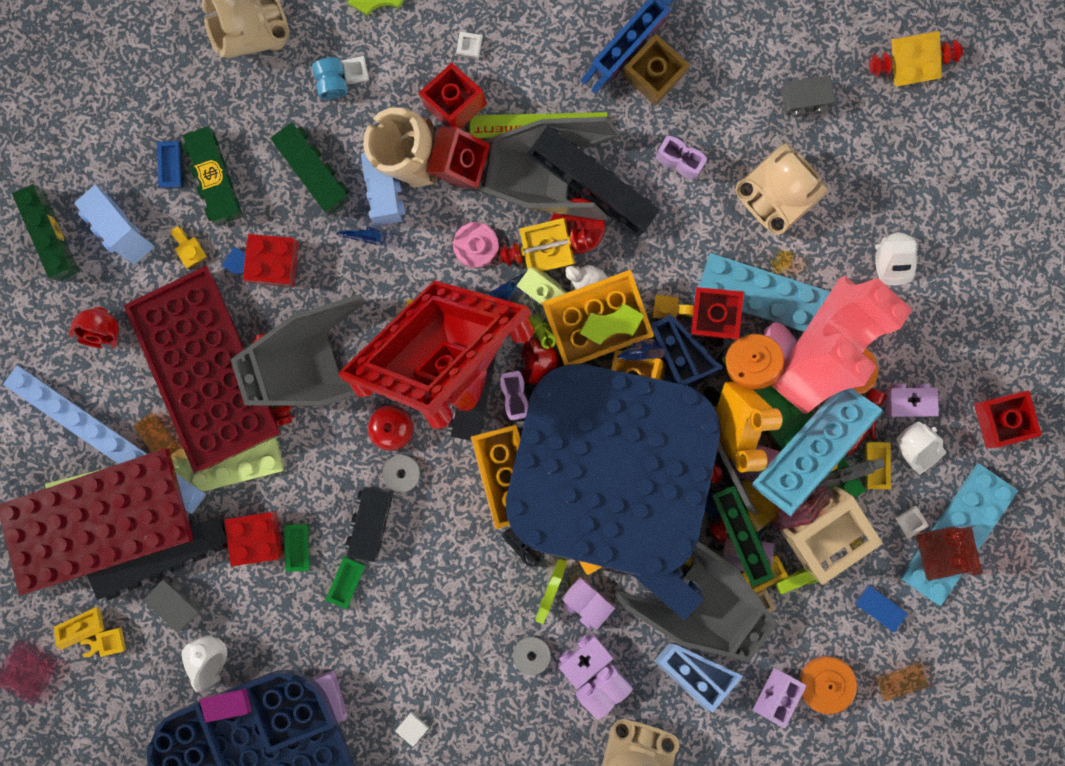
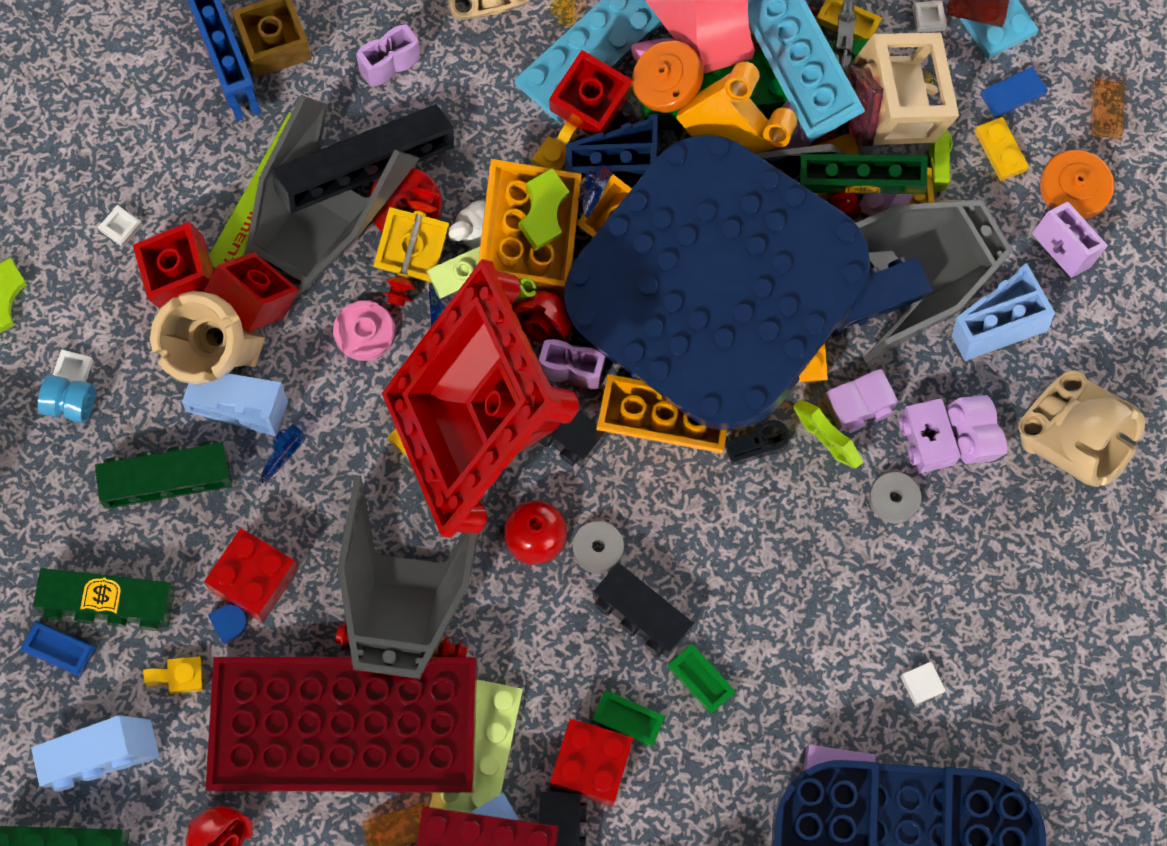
camera: 65 degrees left, 15 degrees down
(831, 618) = (1001, 149): none -> yellow plate

